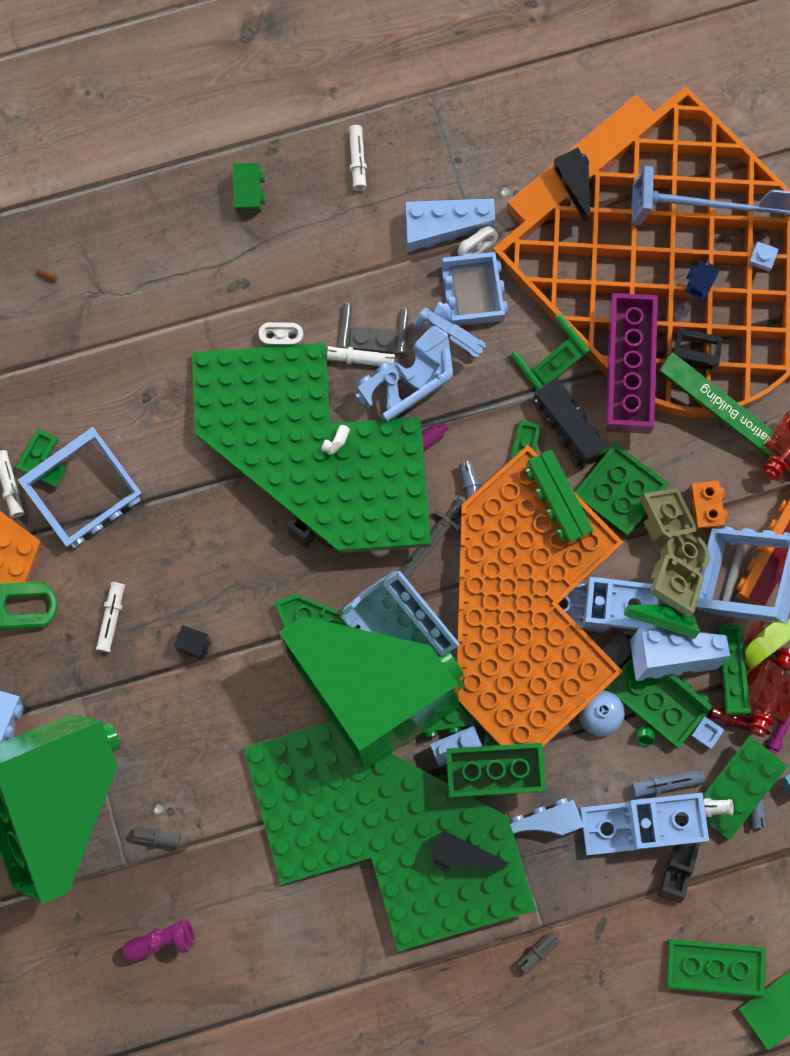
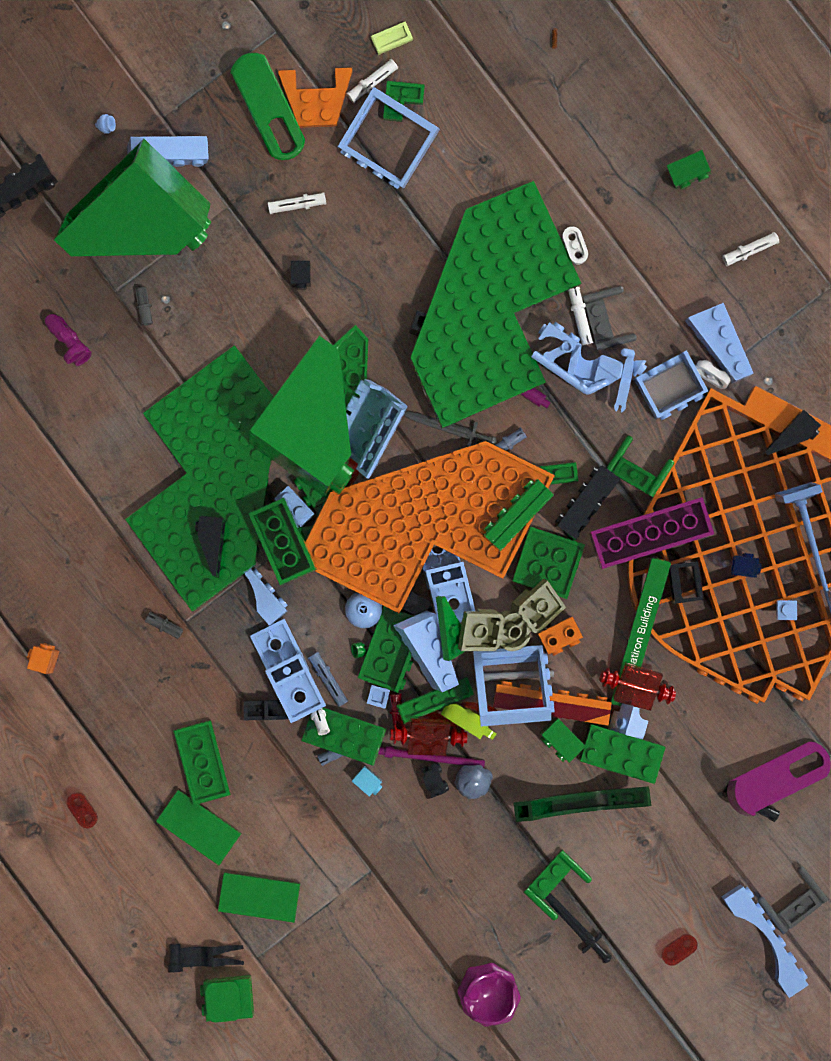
camera: 70 degrees right, 10 degrees up
(338, 442) = (497, 324): white arm -> none

